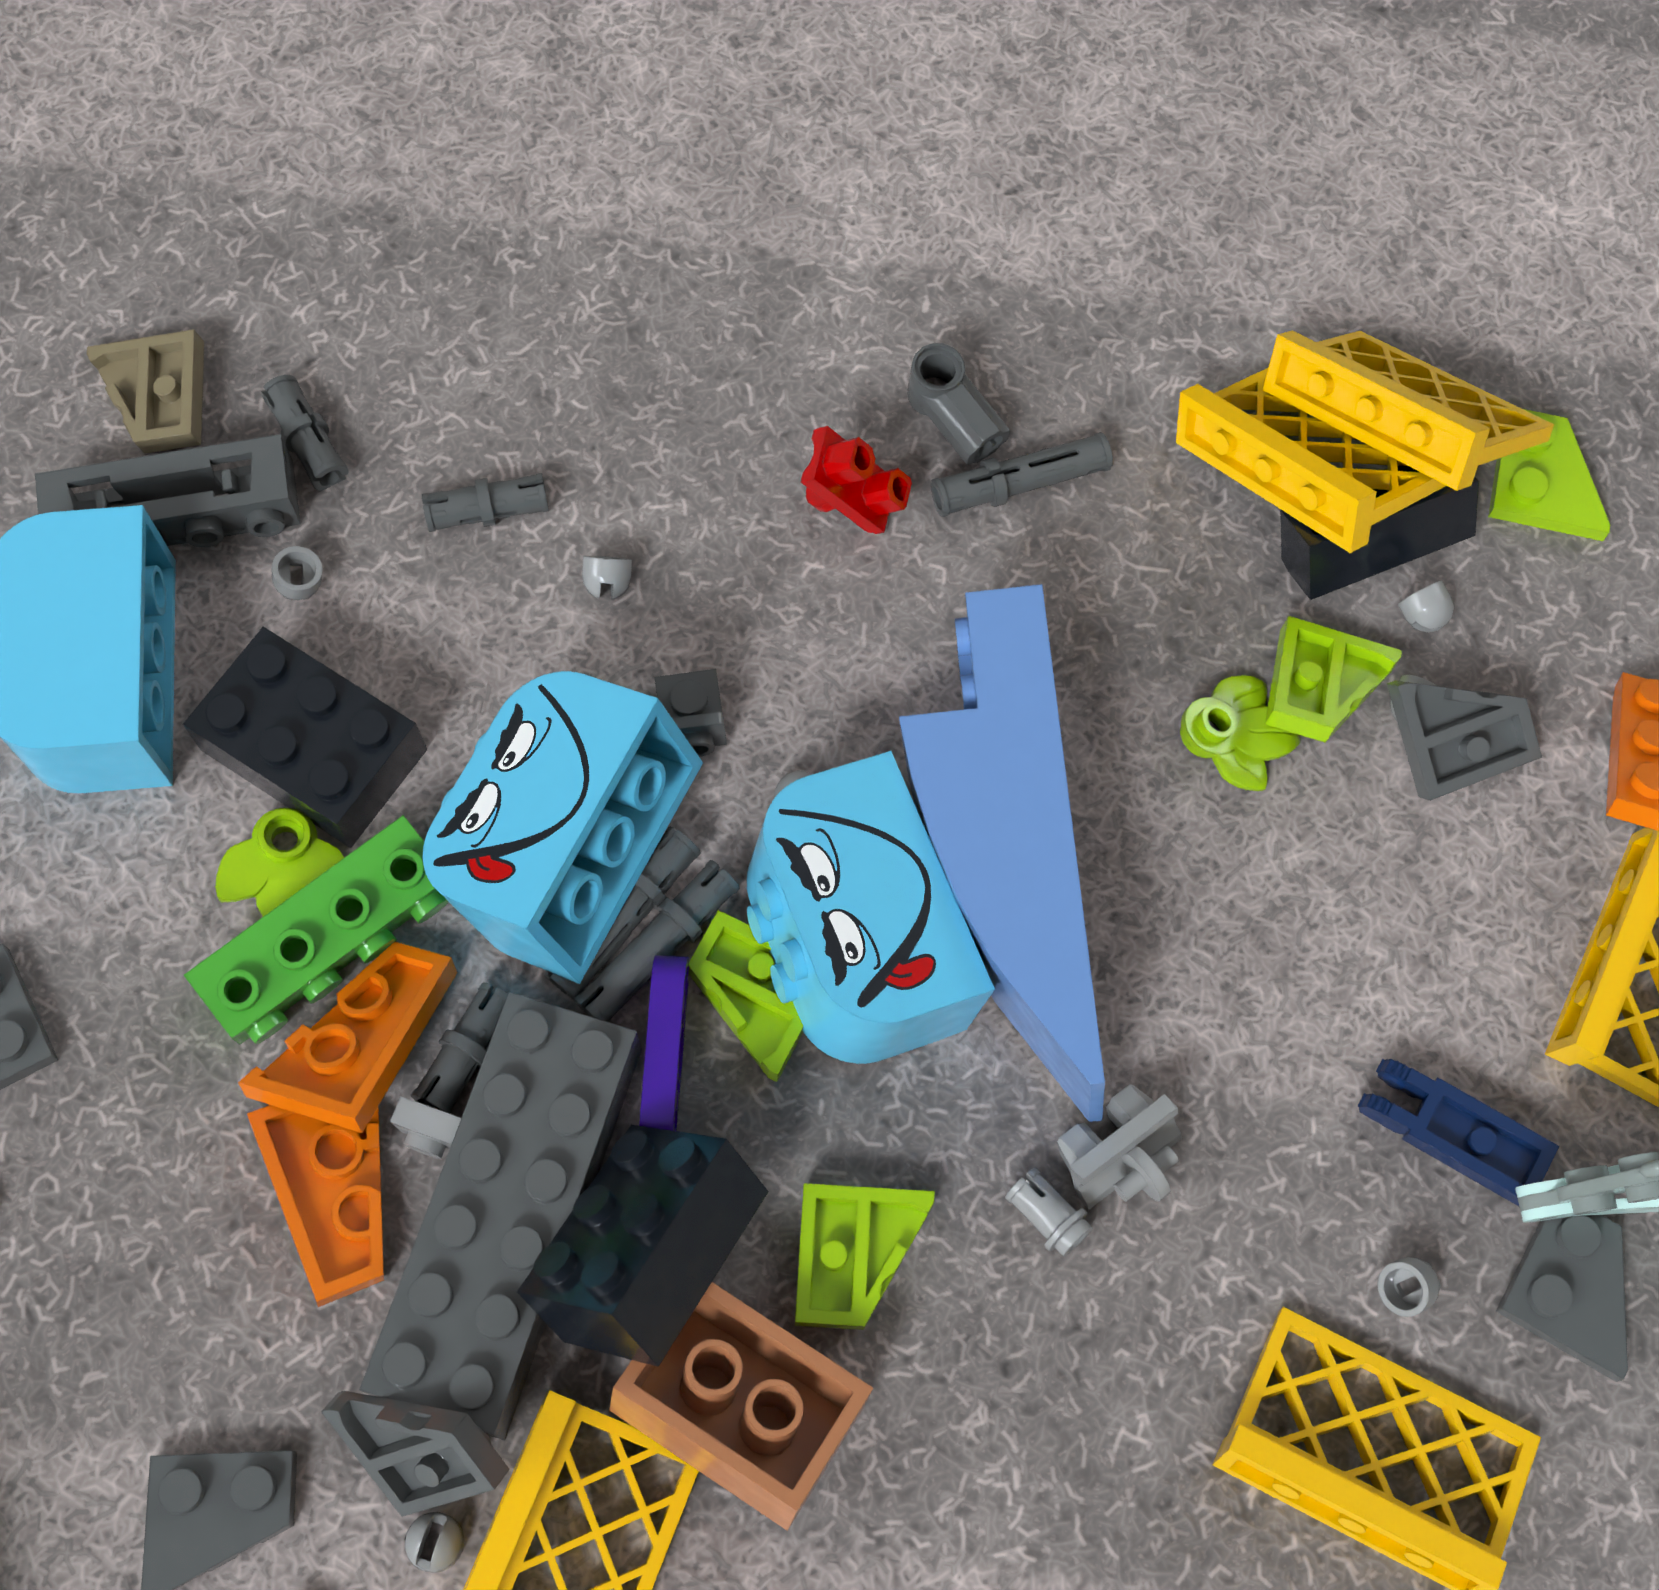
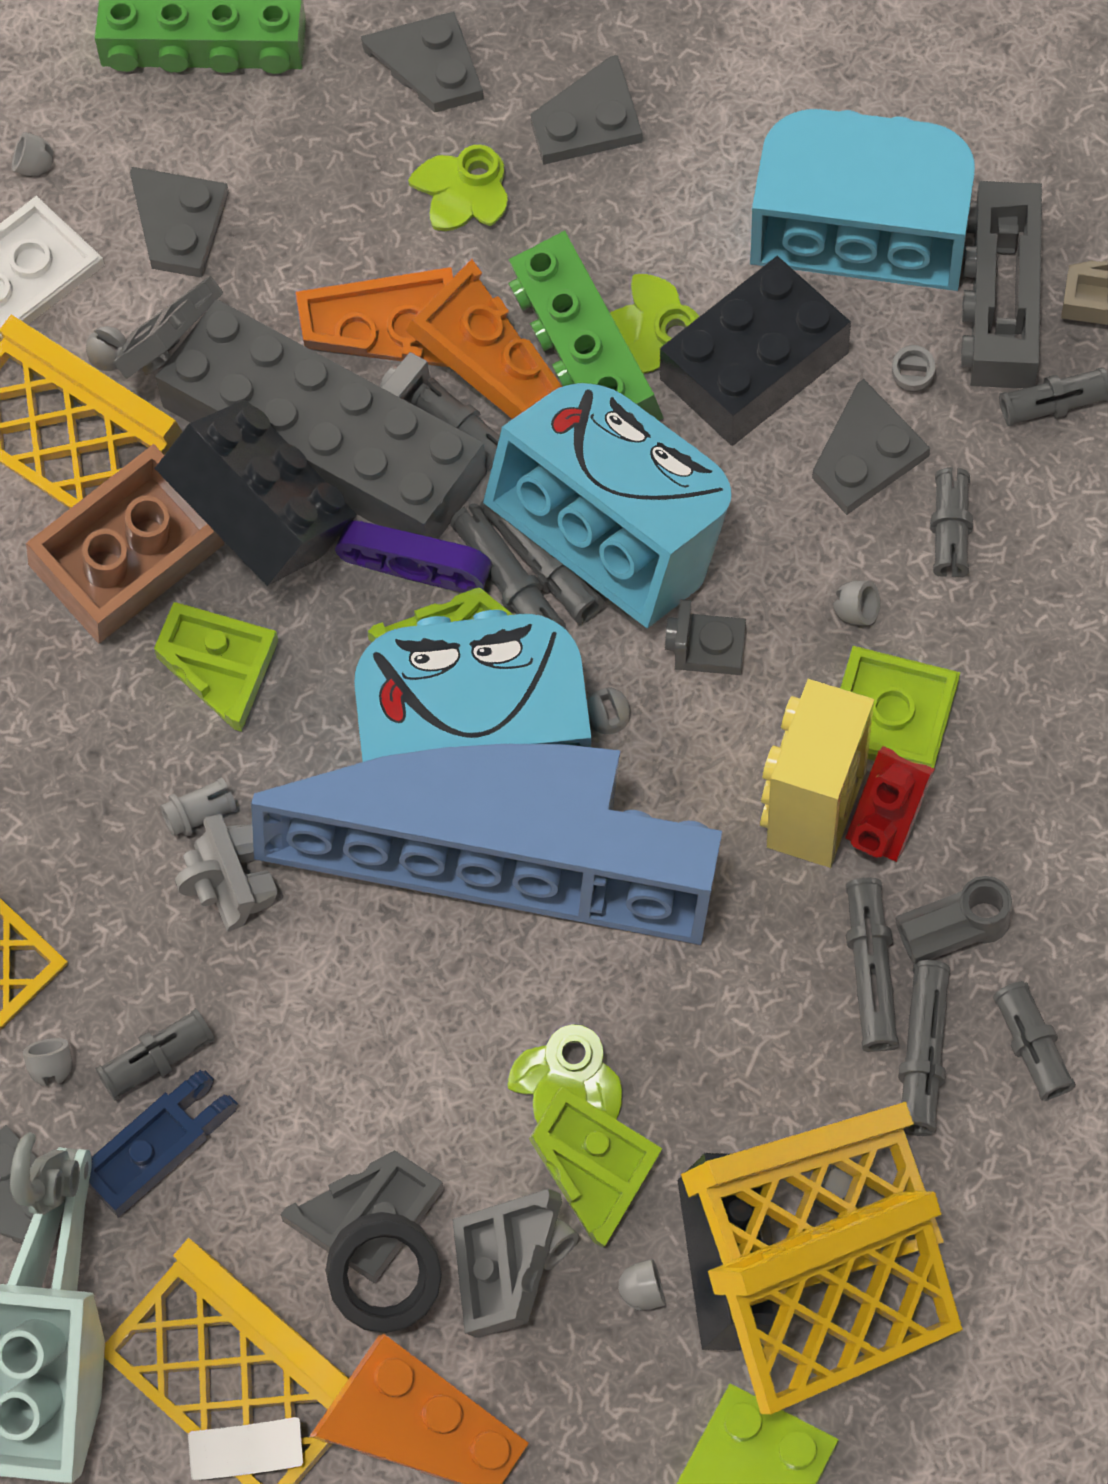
camera: 110 degrees right, 5 degrees down
(120, 1152) = (460, 194): none -> lime plate
(407, 605) = (866, 450): none -> dark grey wing
(723, 518) = (909, 702): none -> lime tile
(856, 526) = (816, 771): none -> light yellow brick
(1080, 304) = (1034, 1040): none -> dark grey pin
(1101, 410) = (922, 1067): none -> dark grey pin
(1362, 1166) = (155, 1054): none -> dark grey pin
(1455, 887) = (386, 1186): none -> dark grey wing
(1504, 861) = (395, 1316): none -> black tyre

